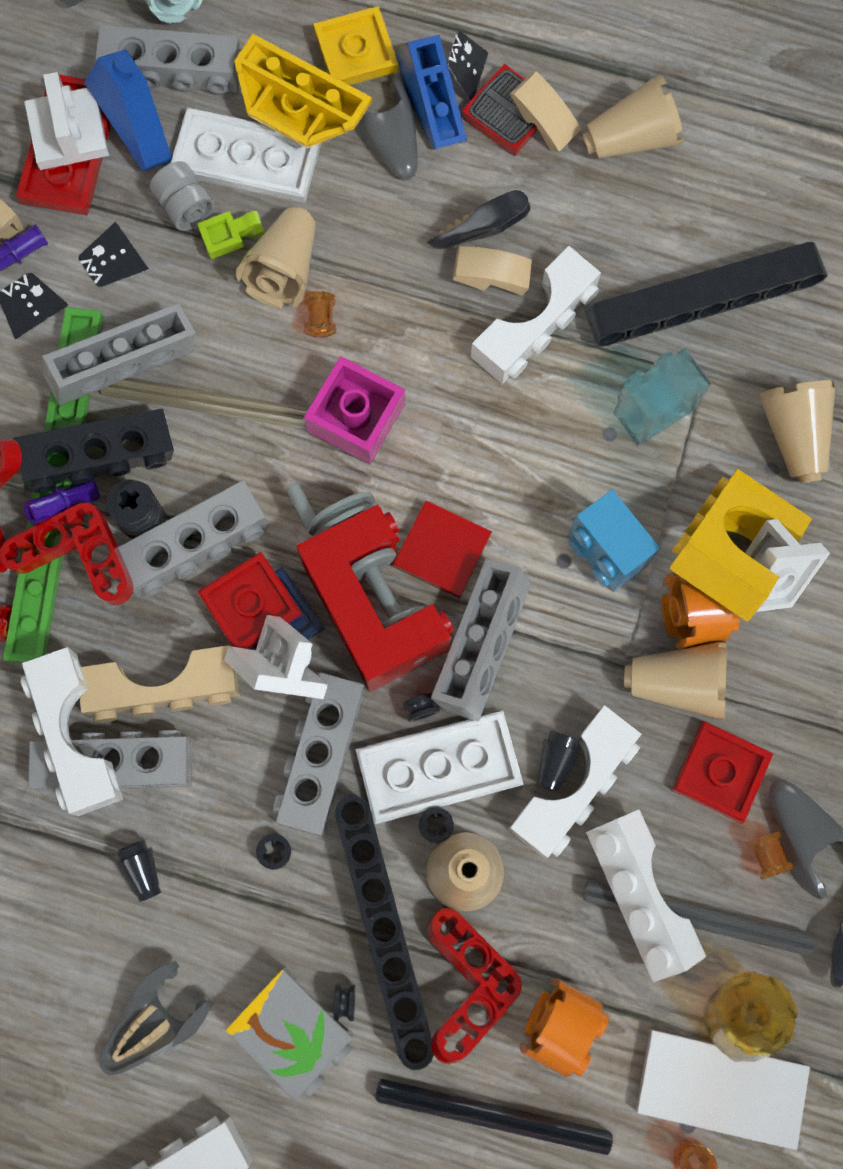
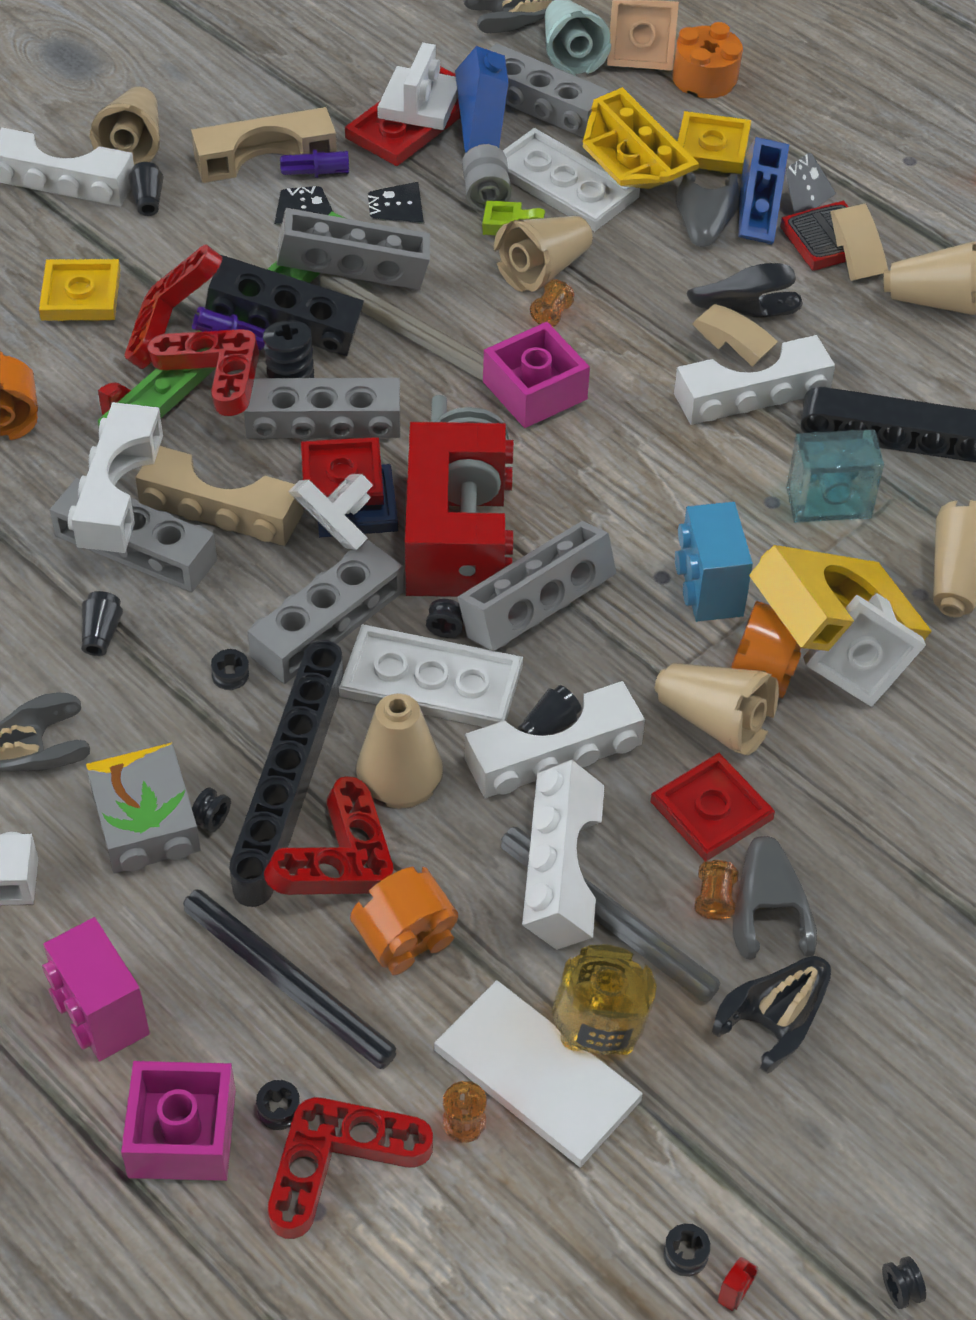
camera: 30 degrees right, 25 degrees down
(442, 549) = (546, 510): red tile -> none

